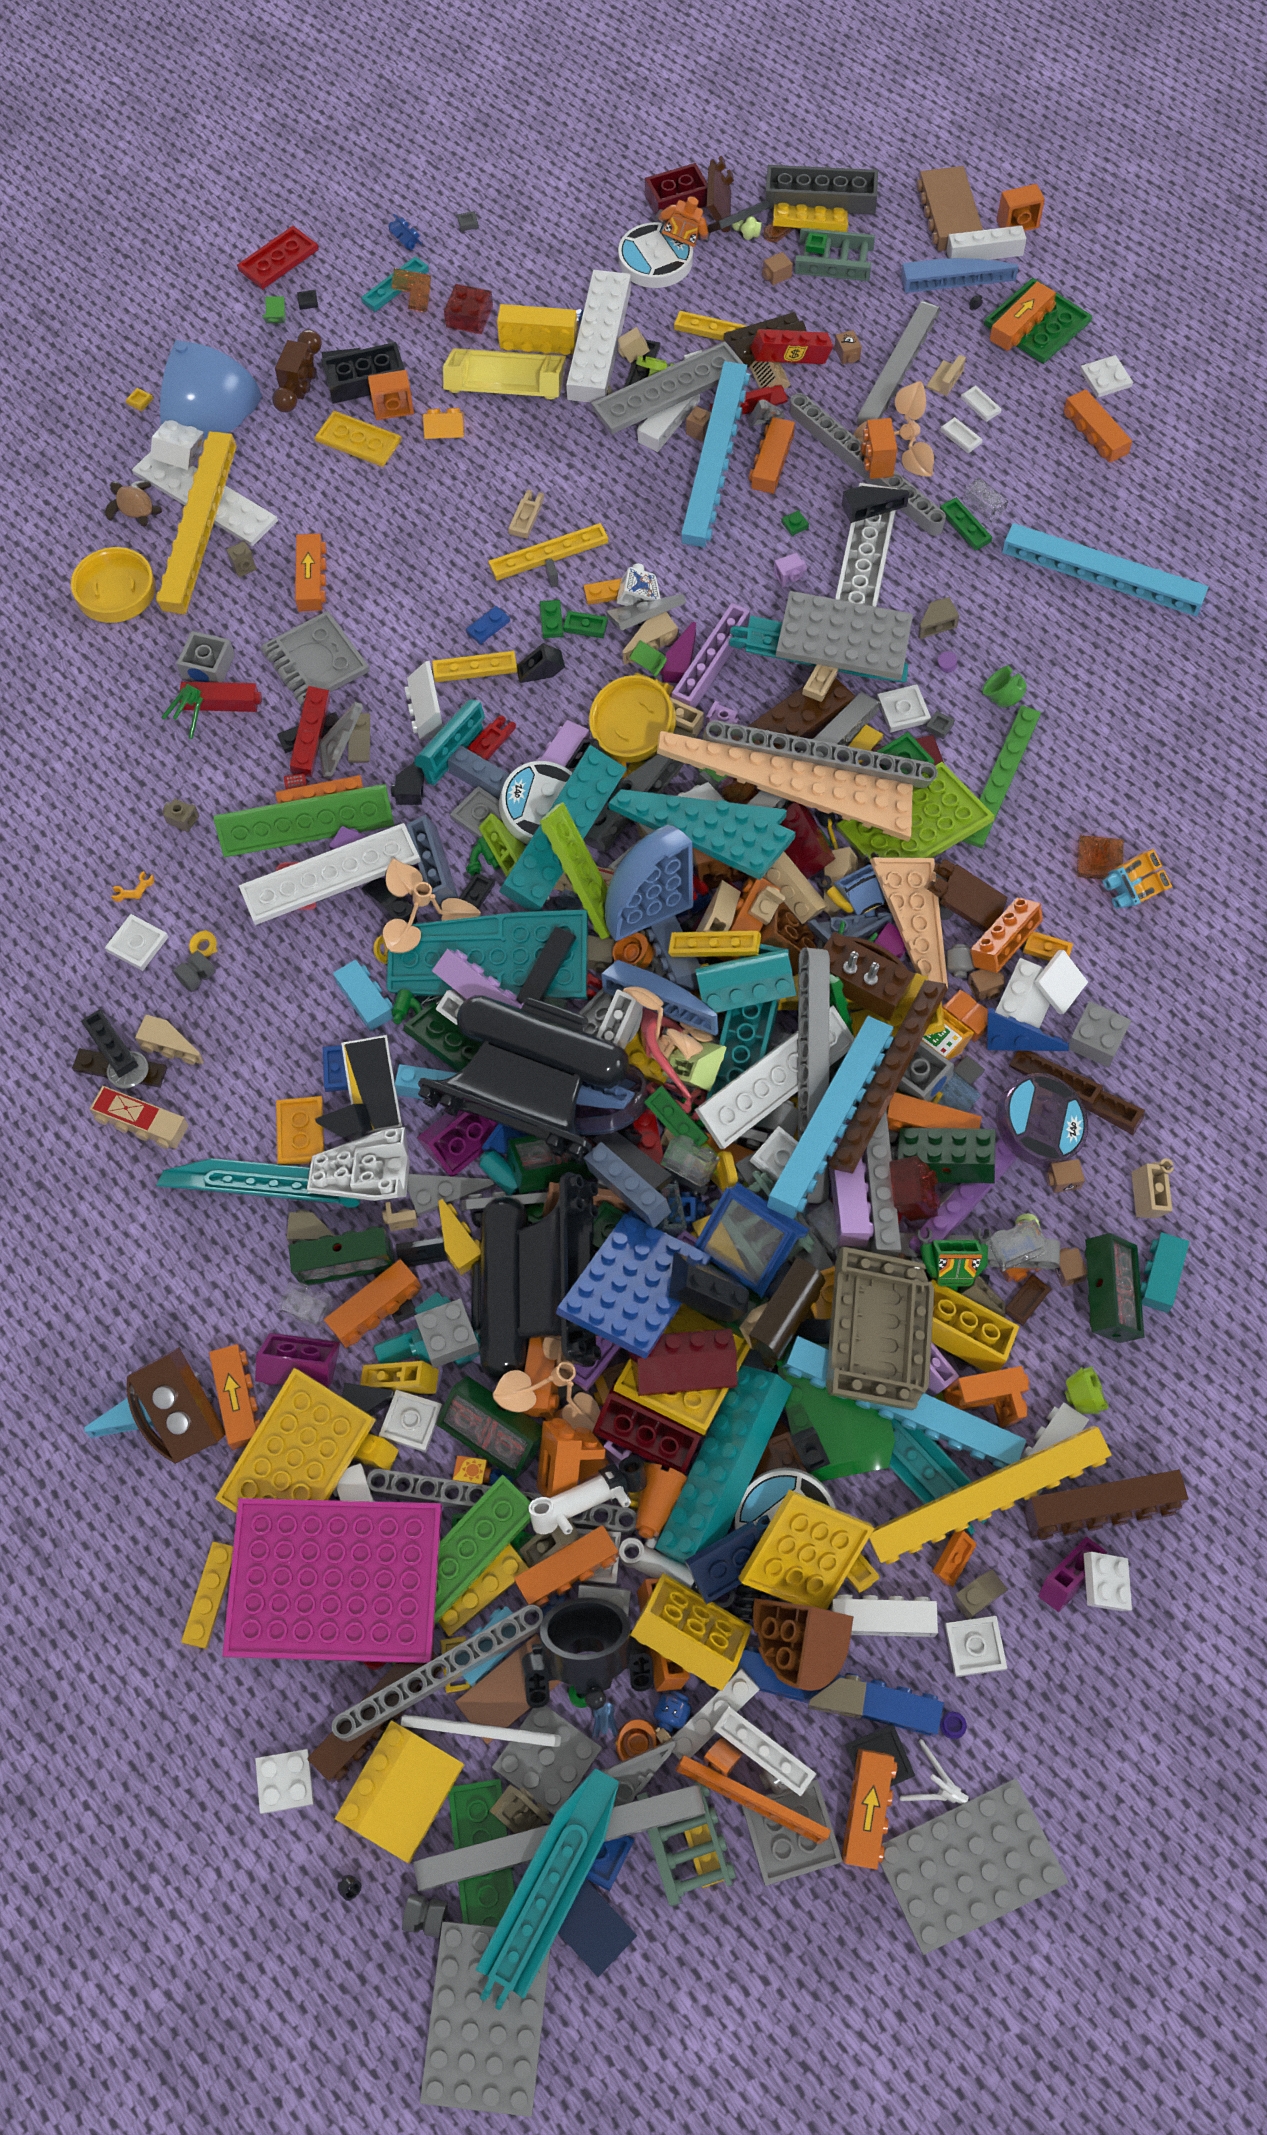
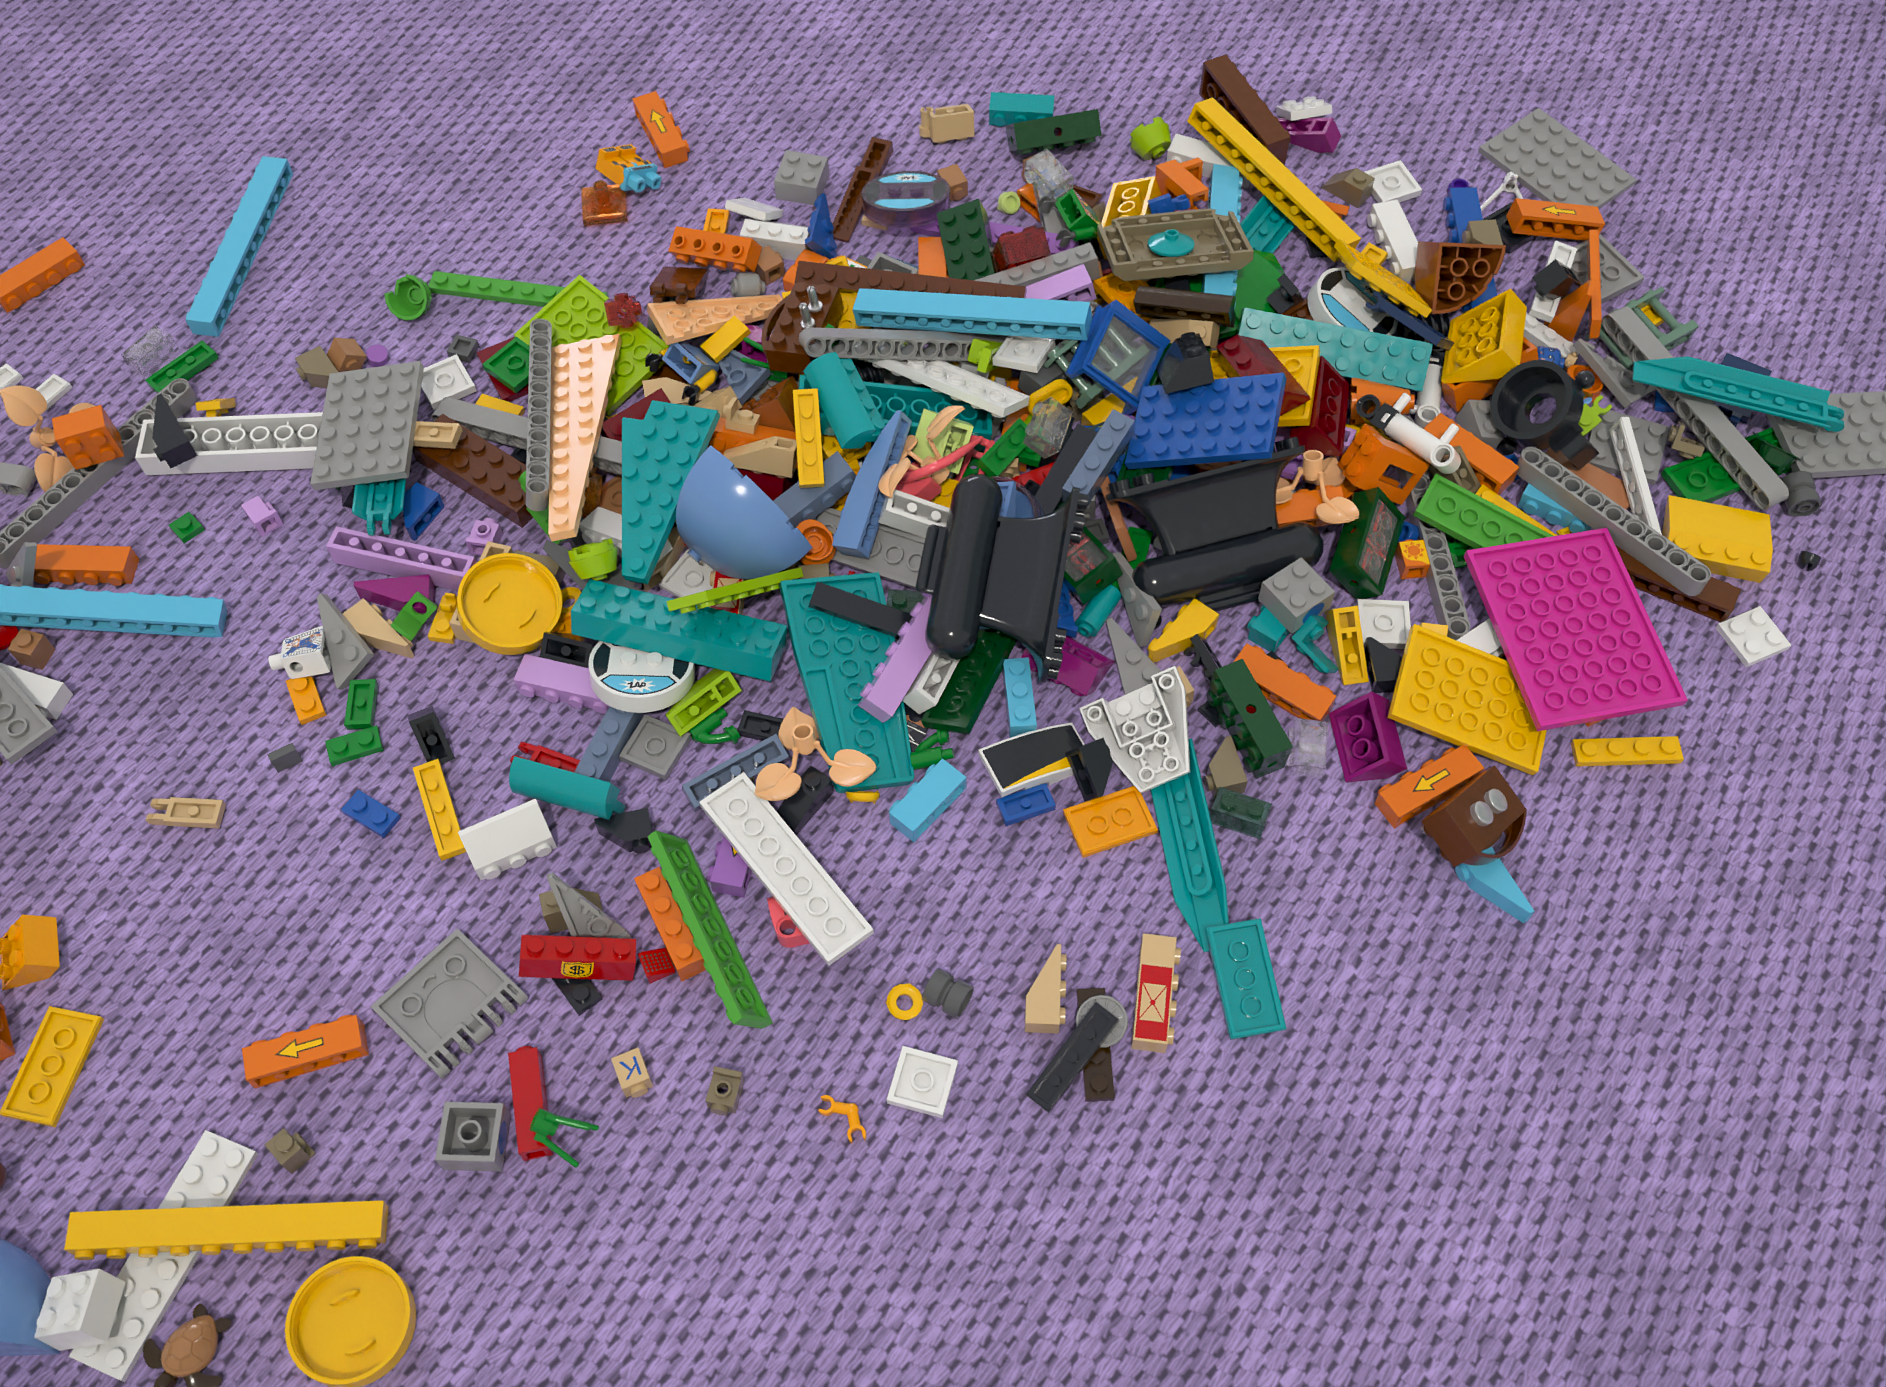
camera: 105 degrees left, 5 degrees down
(123, 1187) = (1245, 979): none -> teal tile
(215, 759) = (632, 1073): none -> tan brick
(264, 1228) = (1240, 812): none -> clear green brick
(476, 1902) = (1775, 457): none -> dark green piece
(552, 549) = (249, 773): yellow plate -> none
(583, 1722) = (1590, 417): none -> lime plate
(642, 770) = (594, 559): none -> lime cone
(750, 1744) = (1555, 281): none -> black slope
(764, 676) = (420, 509): none -> blue slope
(794, 1127) = (982, 352): none -> lime slope
(869, 1330) = (1171, 243): none -> teal dish
(881, 920) = (725, 339): none -> yellow tile
(910, 540) = (216, 407): none -> yellow plate
(931, 837) = (615, 313): none -> clear red brick
(946, 636) = (346, 354): none -> medium nougat brick
(952, 1354) = (1165, 204): none -> blue plate
(1196, 919) = (660, 129): none -> orange brick

